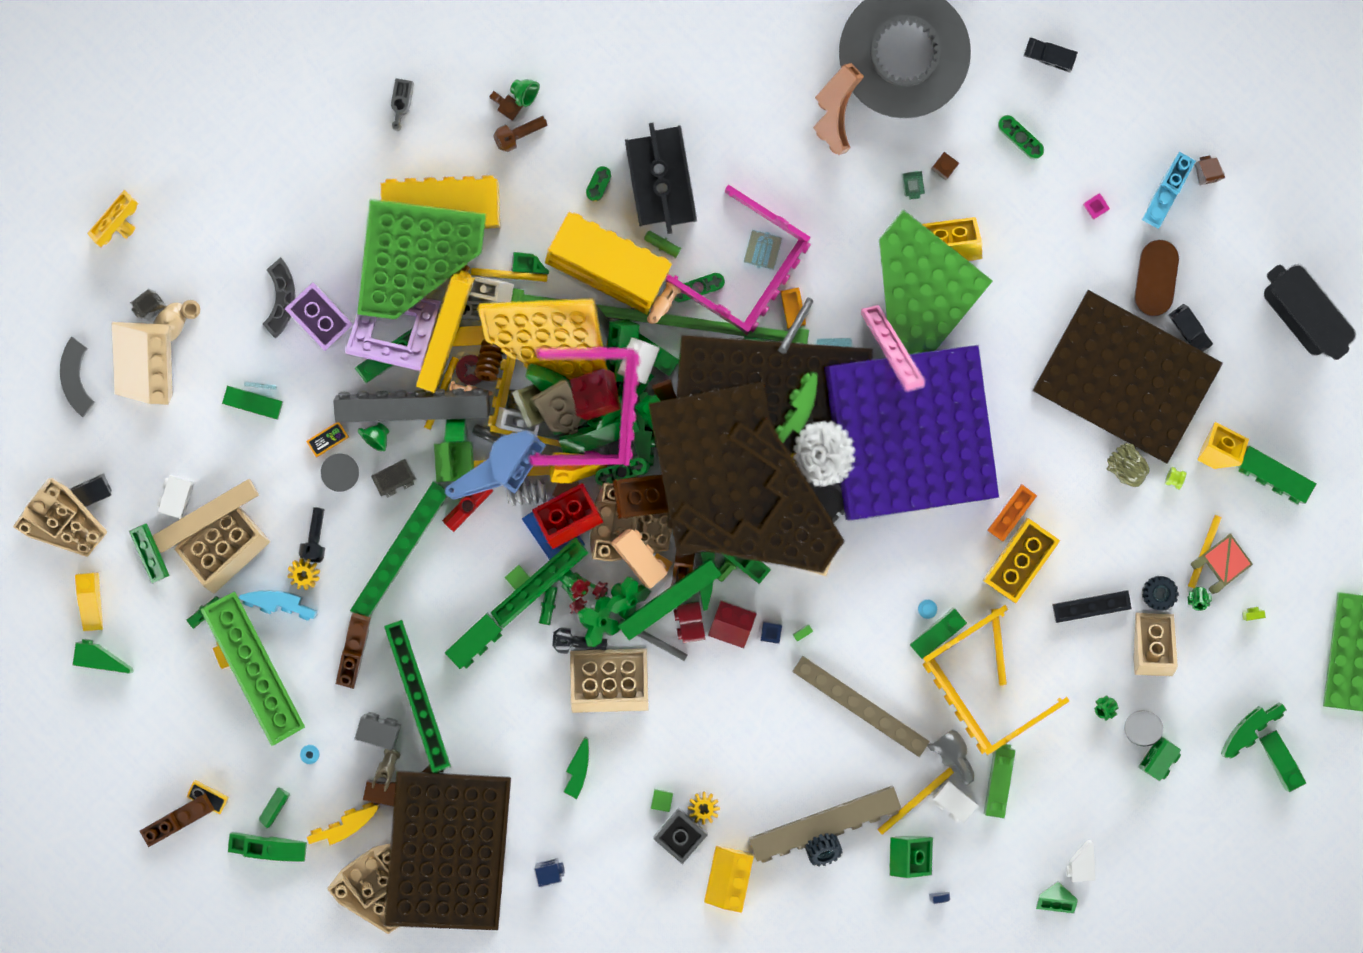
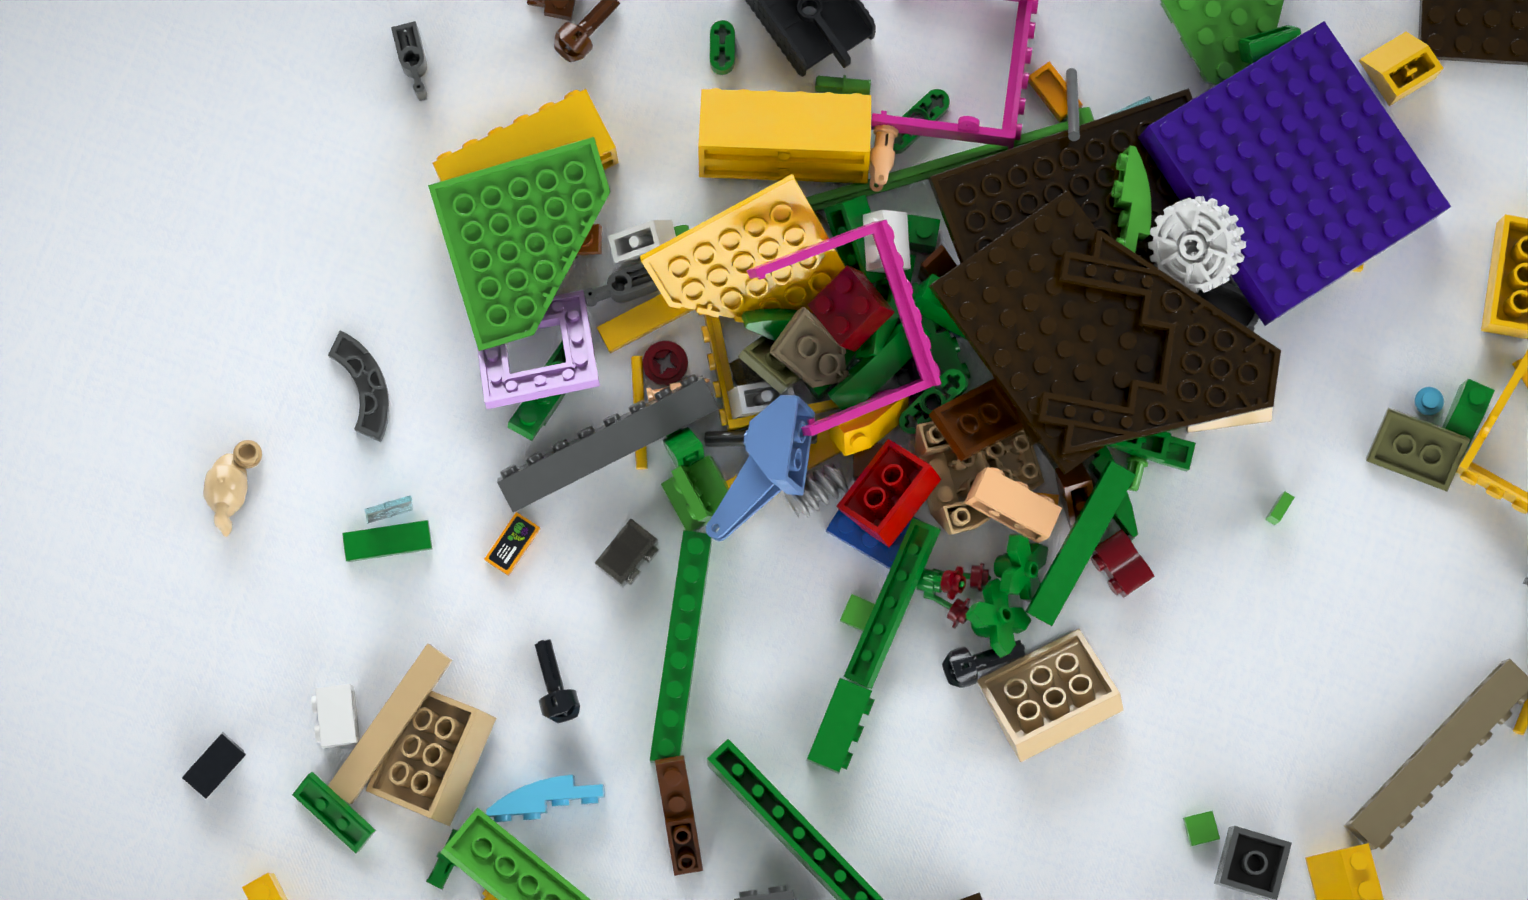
camera: 25 degrees left, 10 degrees down
(60, 520) = (189, 820): tan wedge -> none
(70, 377) = (121, 622): dark grey tile -> none
(114, 220) = (92, 379): yellow plate -> none
(142, 362) = (210, 549): slope -> none
(147, 305) = (185, 470): clear smoke brick -> none
(311, 575) = (554, 735): yellow gear -> none
(318, 316) = (427, 380): lavender brick -> none
(339, 472) = (549, 579): dark grey piece -> none
(375, 436) = (576, 509): green piece -> none
(445, 331) = (609, 319): yellow brick -> none
(459, 515) = (739, 562): red piece -> none
(488, 362) = (685, 336): reddish brown piece -> none
(509, 274) = (664, 214): yellow bar -> none
(527, 263) = (677, 191): green slope -> none
(548, 605) = (918, 631): green pin -> none
(578, 769) = (1067, 835): green slope -> none
(661, 644) = (1096, 613): dark grey bar -> none
(710, 807) = (1258, 817): yellow gear -> none
(732, 624) = (1179, 540): dark red slope -> none
(763, 250) = (978, 36): clear light blue piece -> none
(771, 632) = (1236, 529): dark blue tile -> none
(823, 849) = (1458, 789): black bush -> none
(861, 706) = (1406, 573): dark tan plate -> none
(892, 347) = (1217, 70): bright pink tile -> none
(904, 635) = (1417, 449): none -> olive tile
(936, 341) = (1261, 44): none -> green slope
(1012, 512) = (1475, 224): orange plate -> none
(1015, 392) = (1401, 67): none -> yellow slope

